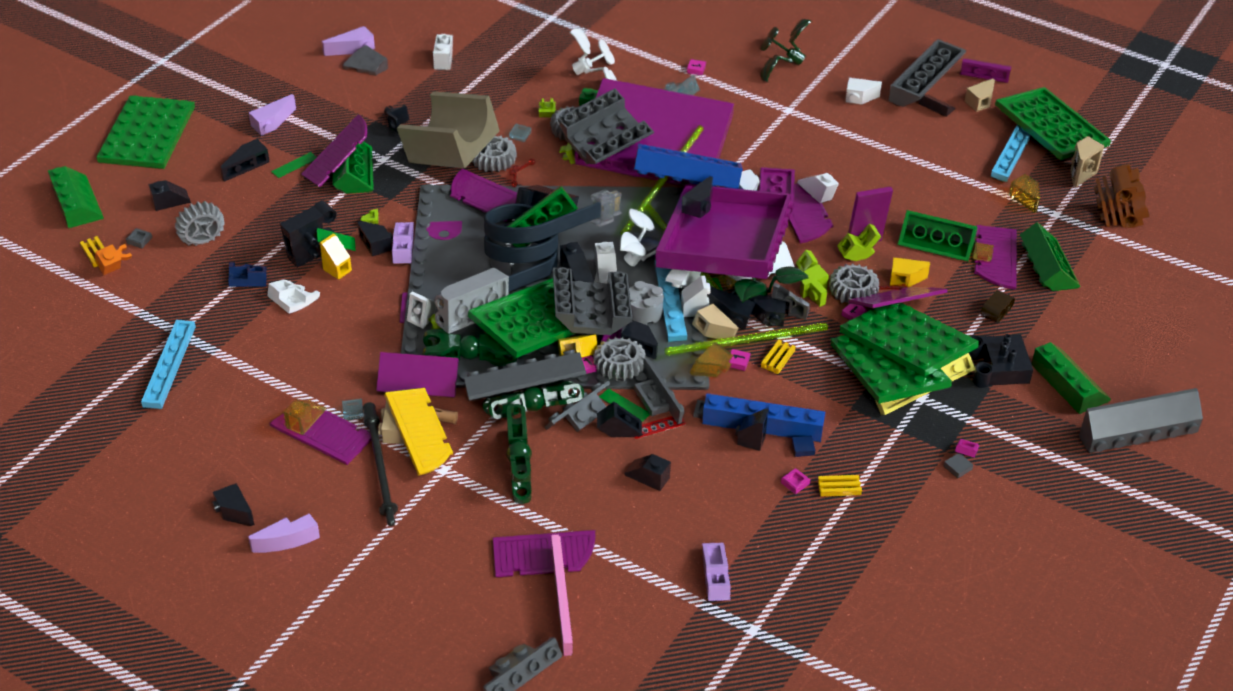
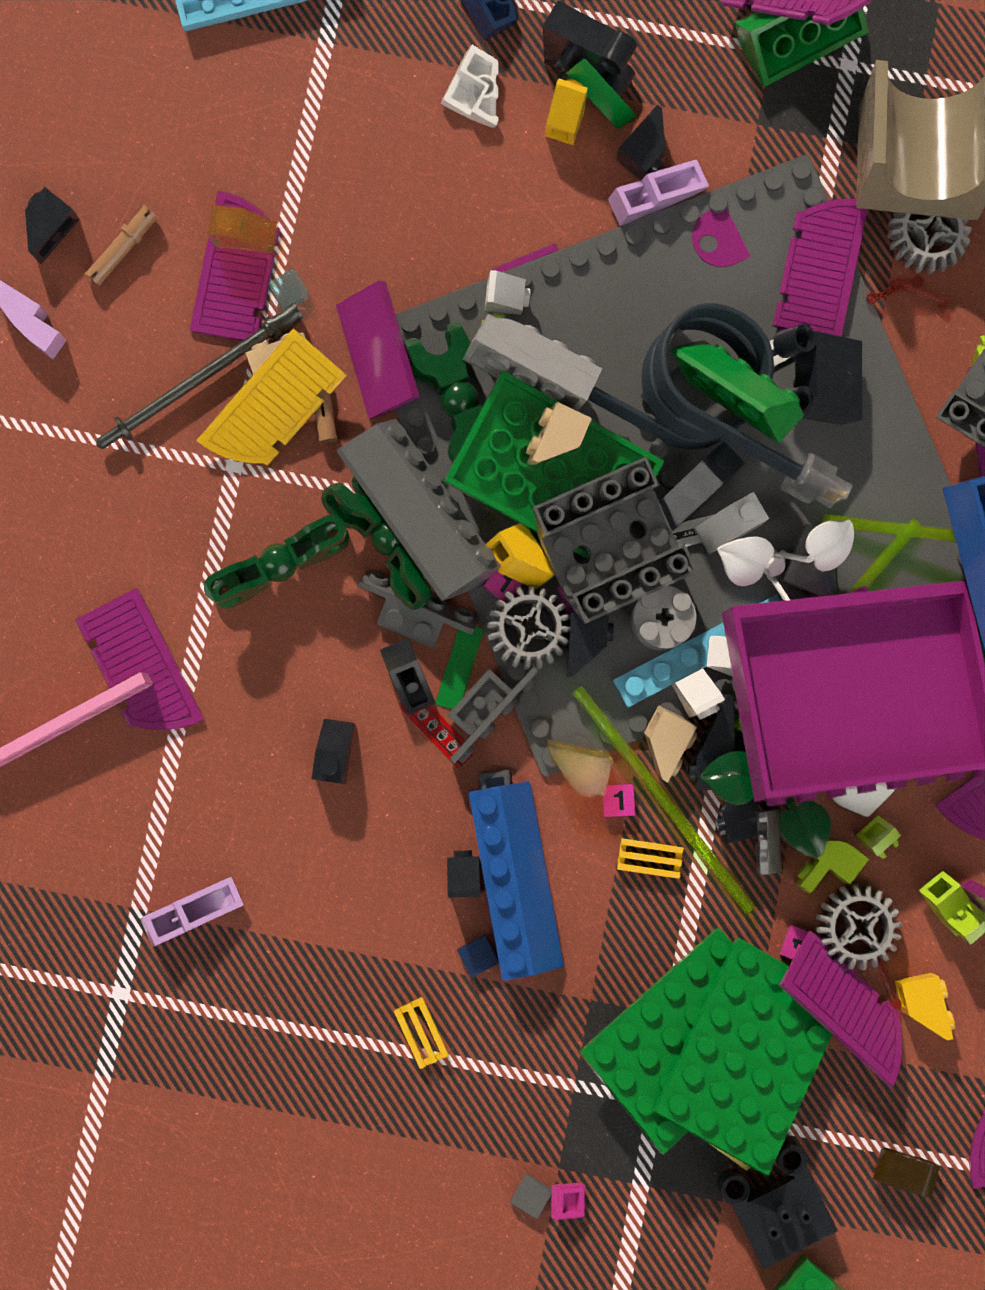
camera: 70 degrees right, 40 degrees up
(269, 470) = (122, 245): none -> medium nougat pin
(371, 217) = (696, 115): lime tile -> none
(396, 116) = (955, 33): black bracket -> none
(518, 298) = (560, 434): none -> tan slope
(698, 200) = (905, 624): black slope -> none
(795, 481) = (406, 966): dark pink tile -> none

